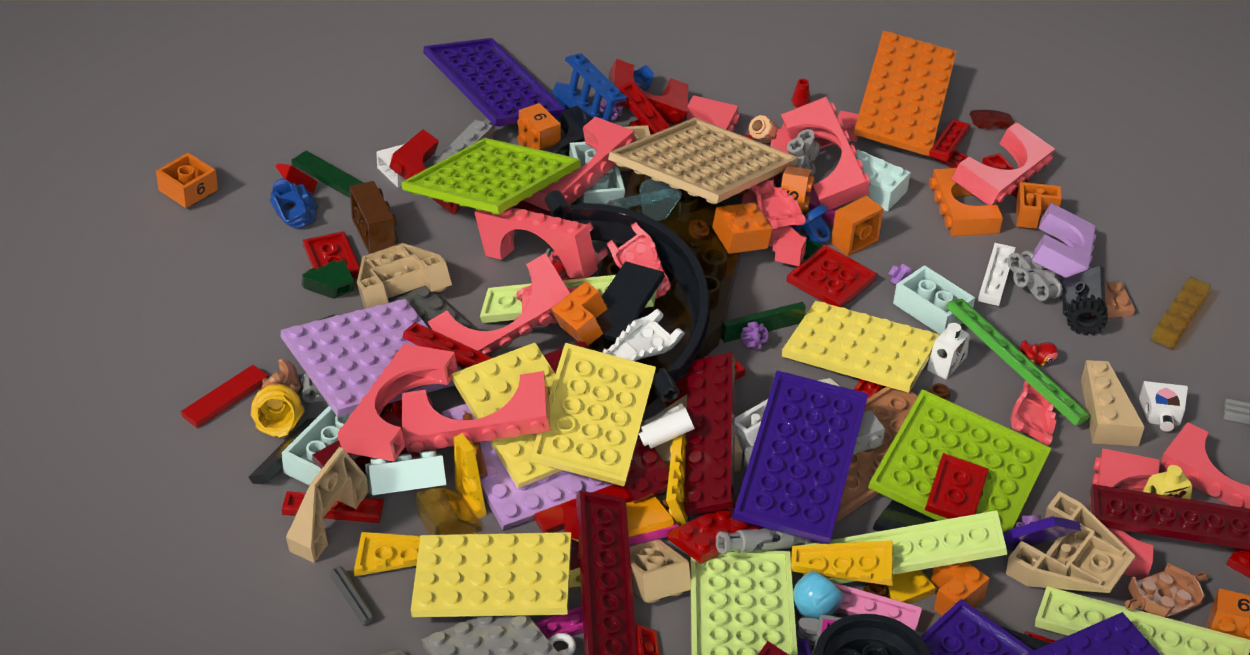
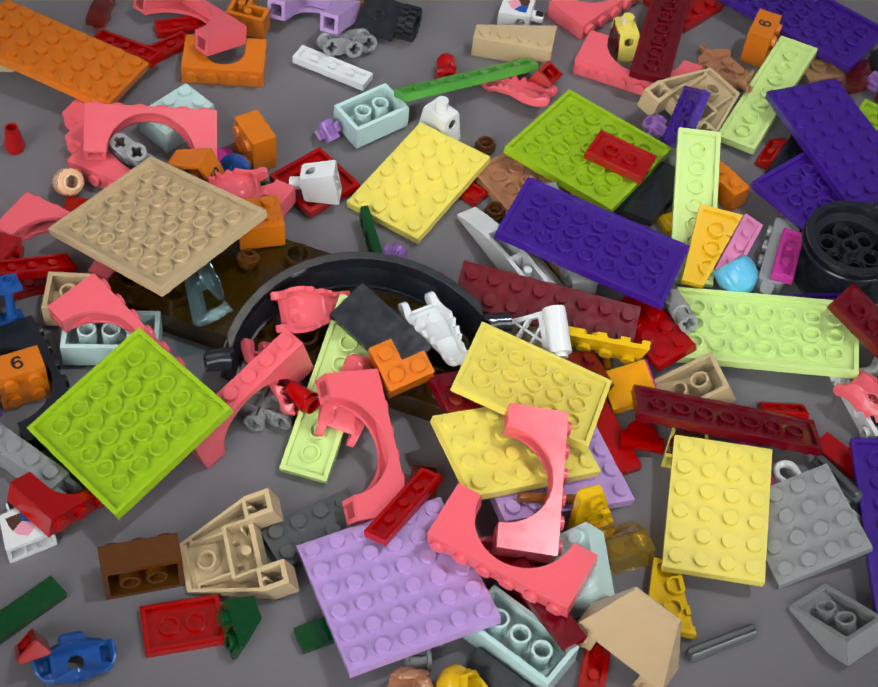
camera: 85 degrees left, 10 degrees up
(815, 260) = (319, 182): none -> white torso
(1069, 431) = (546, 75): none -> red slope

